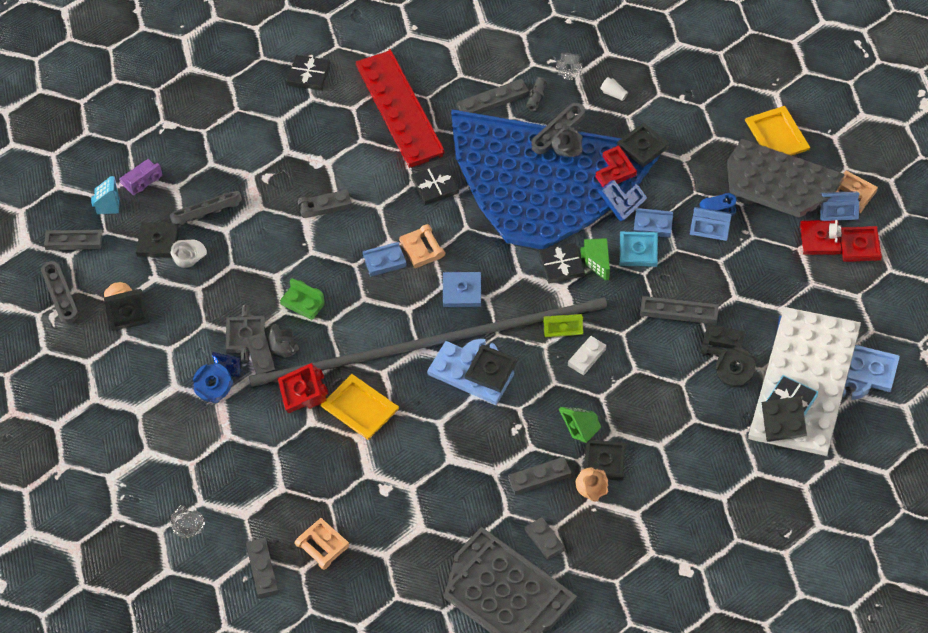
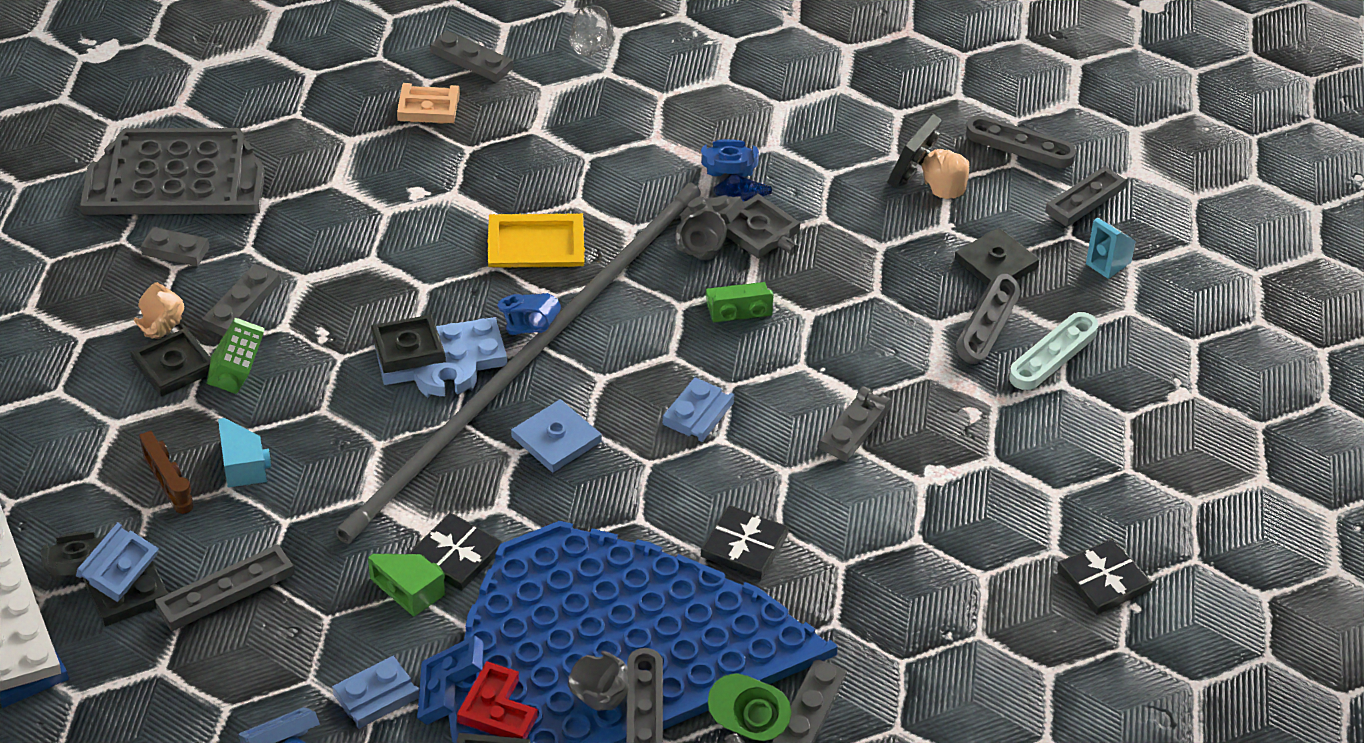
camera: 135 degrees right, 10 degrees down
(141, 177) = (1115, 308): medium lavender bracket -> none
(187, 252) = (936, 254): white hat -> none
(197, 174) = (1053, 351): none -> light aqua plate
(303, 388) = (618, 211): red plate -> none
(400, 108) = (921, 612): red plate -> none
(412, 348) = (529, 312): none -> blue piece
(417, 250) = (668, 451): light nougat plate -> none
(514, 104) = (749, 707): none -> bright green piece
(563, 325) = (363, 472): lime plate -> none
(587, 355) = (307, 461): white plate -> none
(618, 372) = (242, 455): none -> medium azure slope
(638, 249) = (363, 638): medium azure tile -> none
(660, 386) = (167, 473): none -> reddish brown plate
(723, 338) = (117, 562): none -> medium blue plate

